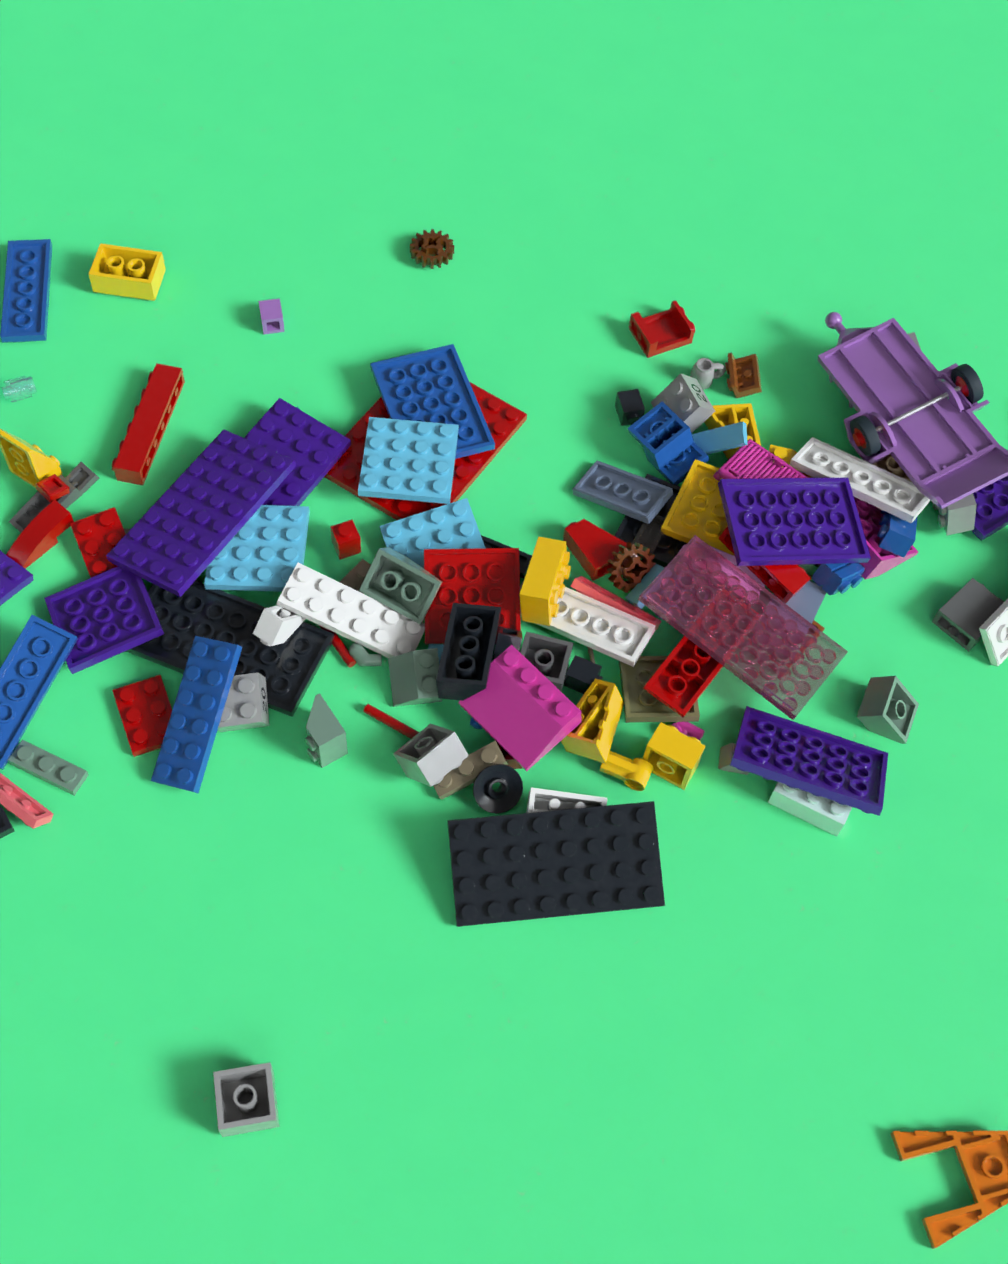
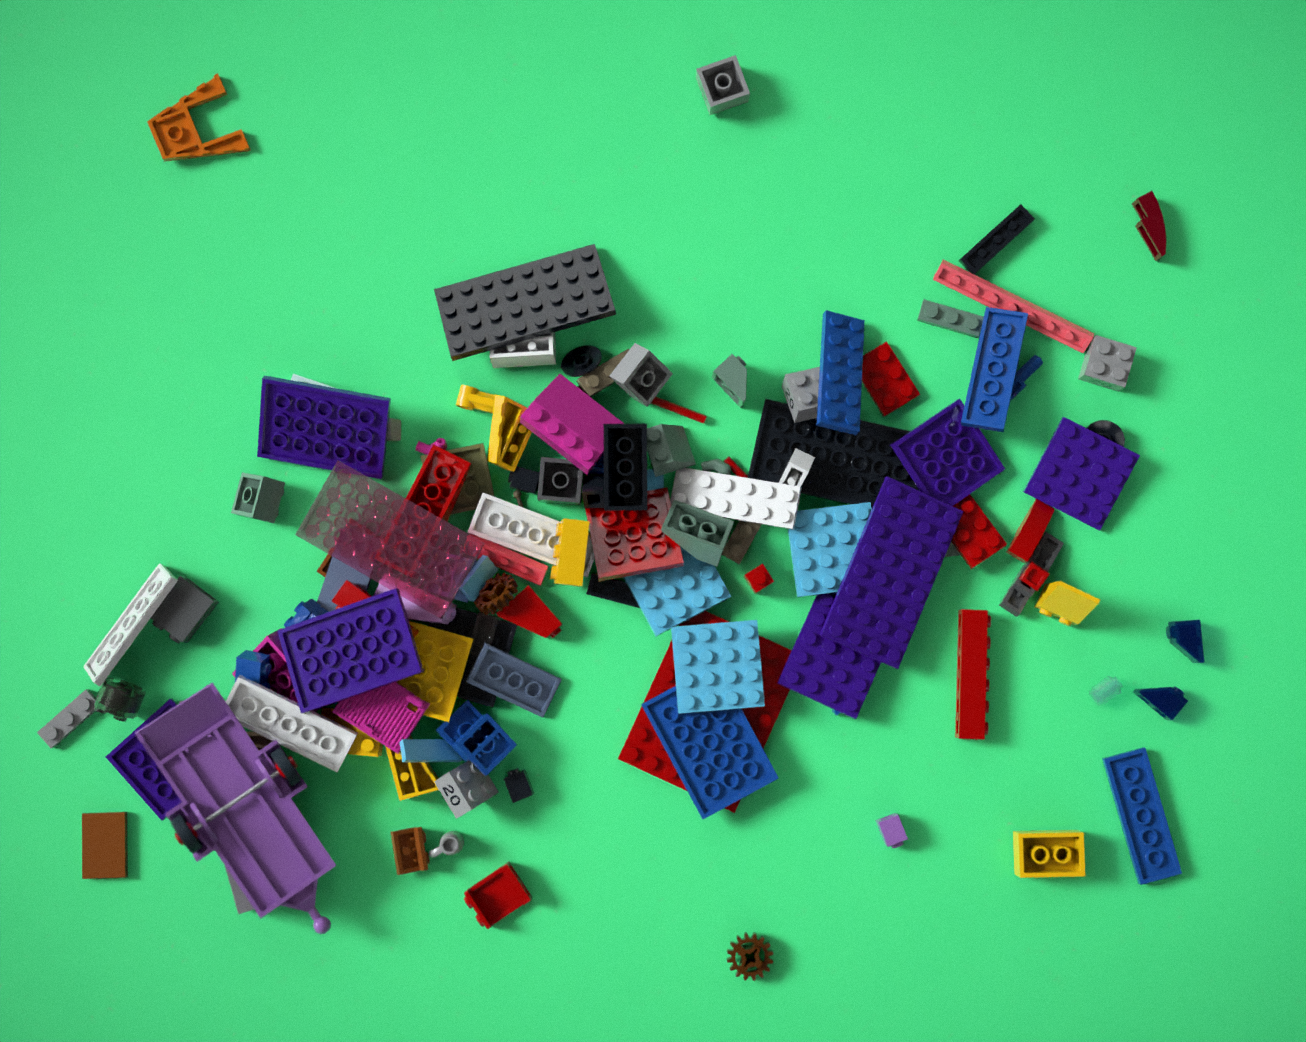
camera: 175 degrees right, 25 degrees up
(673, 755) = (439, 412): yellow brick -> none

